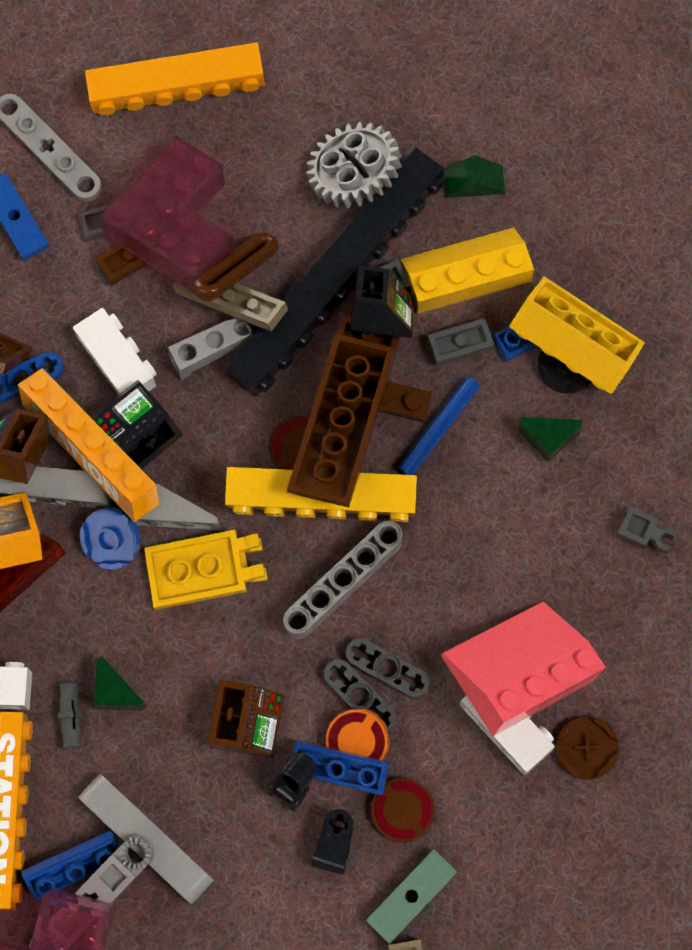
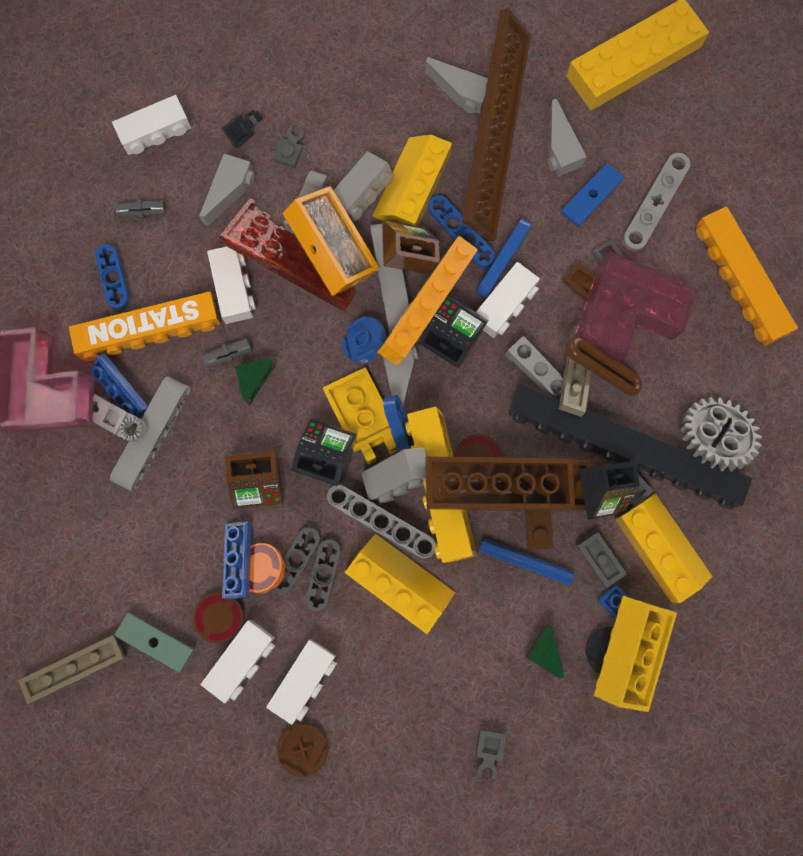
camera: 70 degrees right, 5 degrees up
(60, 342) = (504, 258): none -> blue beam
(236, 522) = (396, 419): none -> blue beam
(238, 622) = (324, 452): none -> black slope
(294, 780) = (216, 529): black piece -> none
(295, 540) = (395, 475): none -> light grey brick
(332, 847) = (178, 572): black piece -> none
(424, 579) = (400, 583): none -> yellow slope
(463, 795) = (238, 662): none -> white brick
(474, 178) = (743, 533): dark green slope -> none
(522, 666) = (348, 682): coral slope -> none

